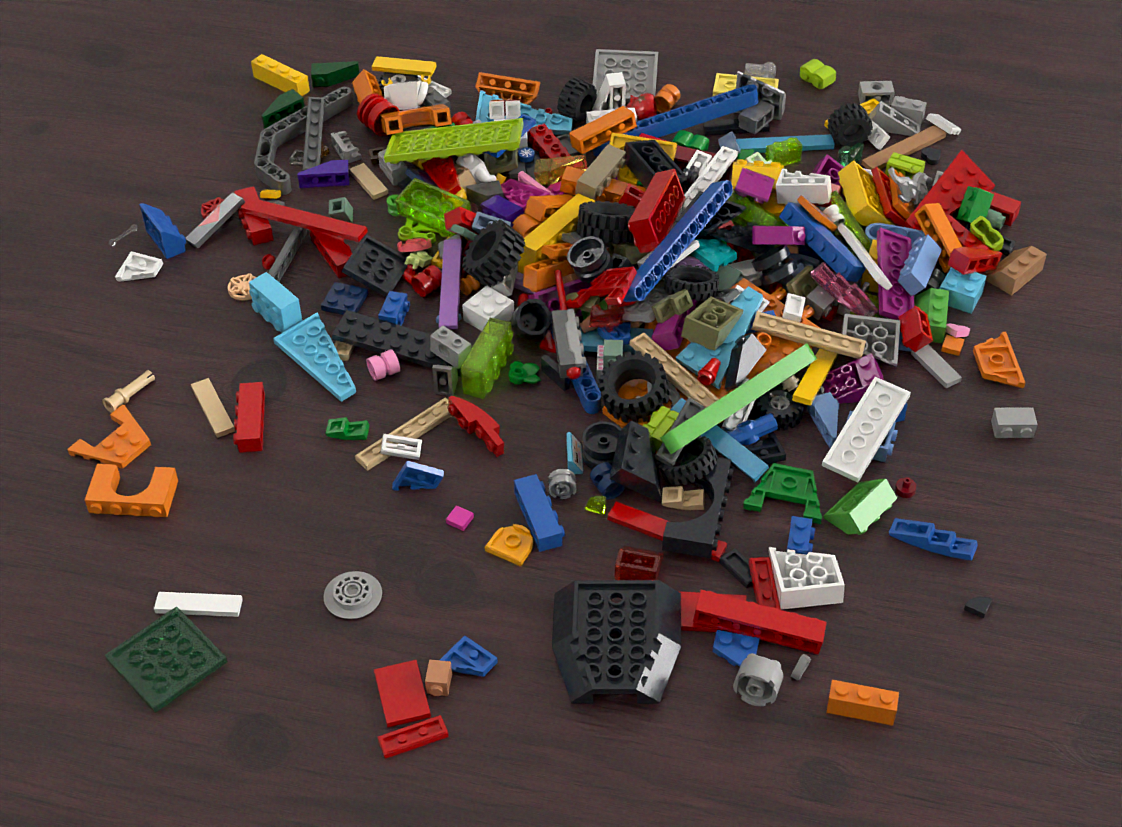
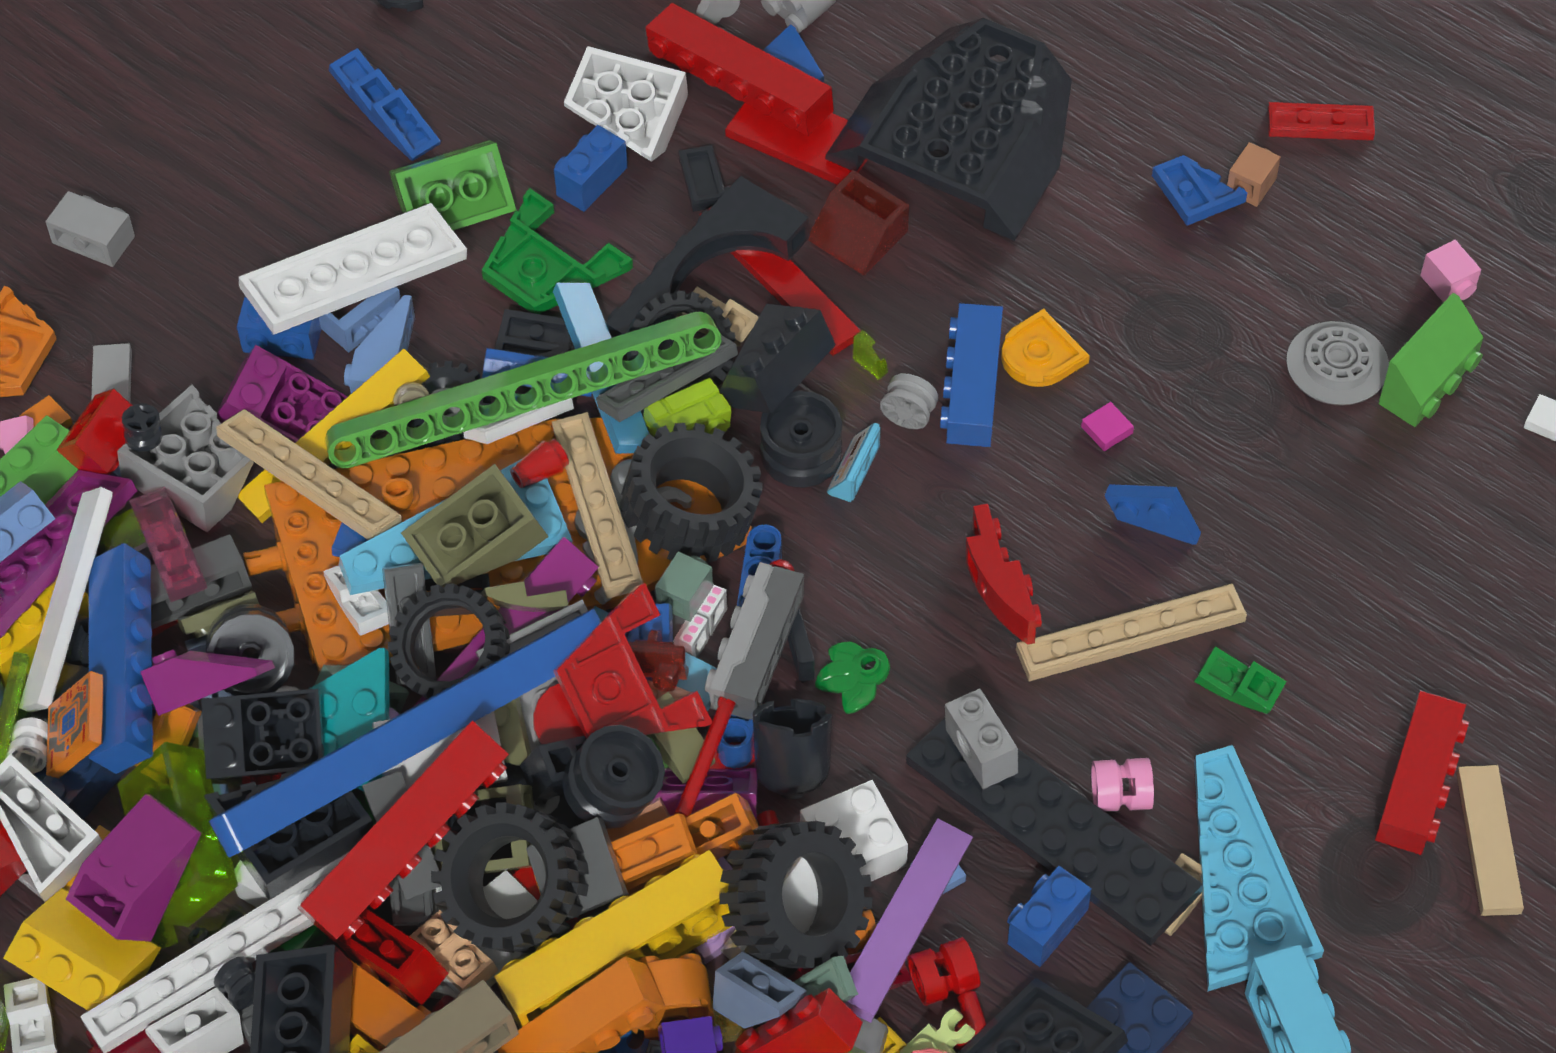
camera: 155 degrees left, 10 degrees up
(300, 598) = (1432, 363): none -> bright green slope
(305, 660) = (1450, 271): none -> bright pink brick
(401, 450) = (1156, 592): white tile -> none
(402, 693) = (1314, 184): red tile -> none
(445, 379) = (1018, 693): flat silver slope -> none
(487, 358) = (914, 699): clear neon green brick -> none
(601, 478) = (833, 379): dark blue wheel -> none
(742, 360) = (458, 463): slope -> none
(764, 582) = (690, 127): red tile -> none
(793, 307) = (287, 545): white tile -> none
(893, 322) = (144, 418): none -> black wheel
(905, 487) = (352, 202): dark red tile -> none

